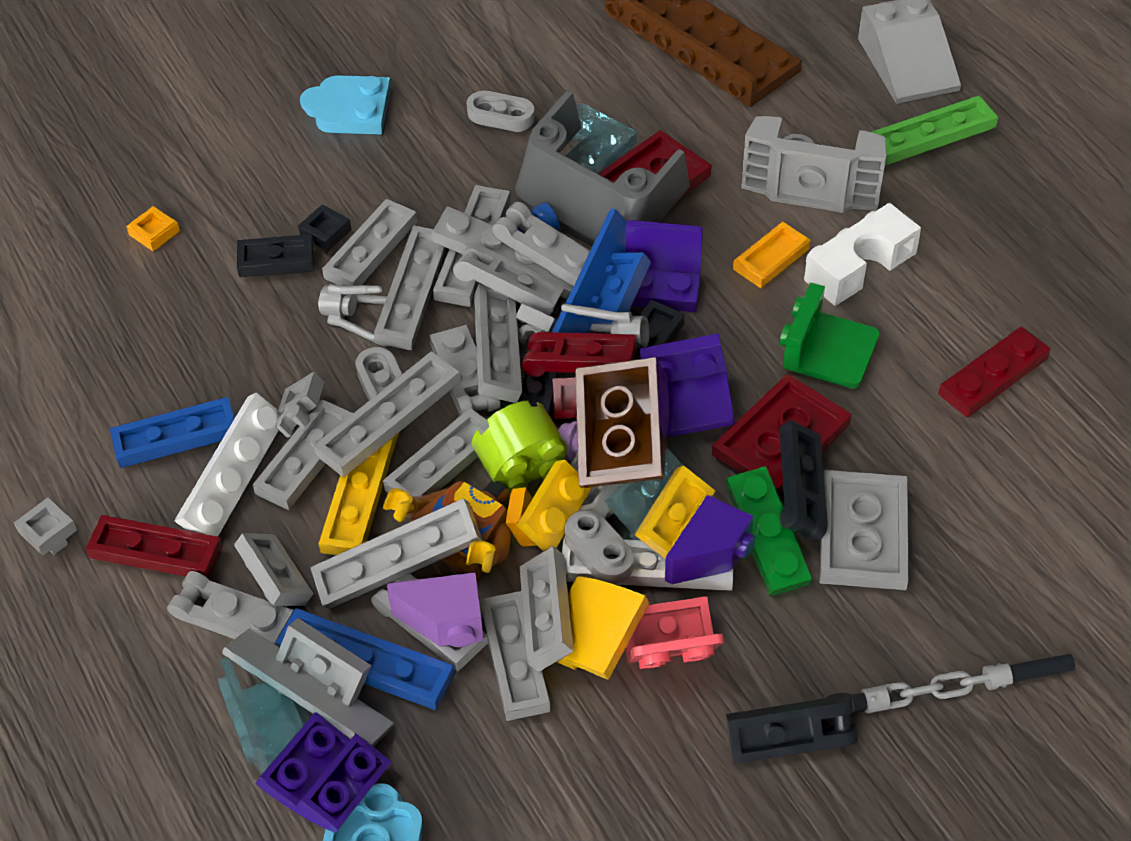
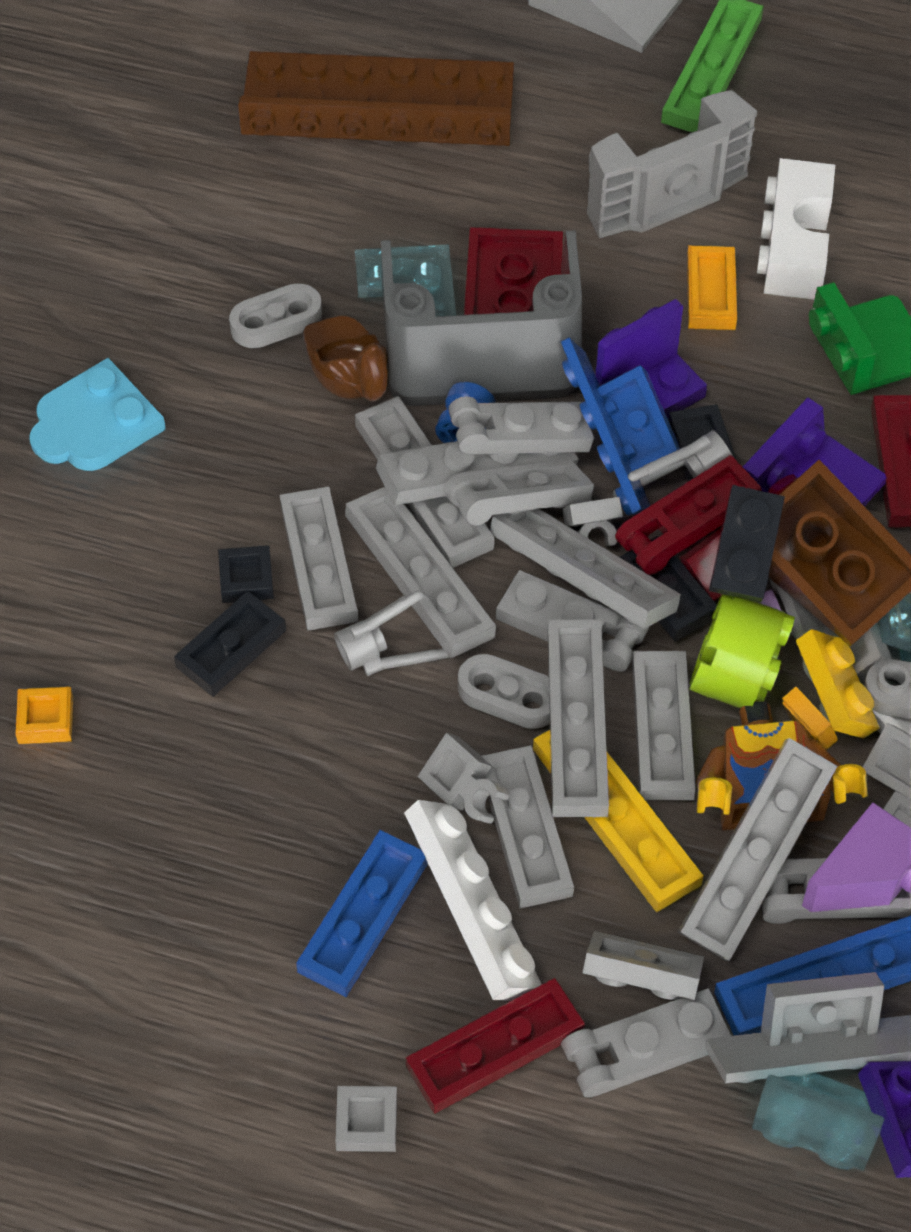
camera: 45 degrees left, 5 degrees up
(501, 152) = (347, 358): none -> reddish brown hair
(565, 377) = (746, 543): none -> black plate

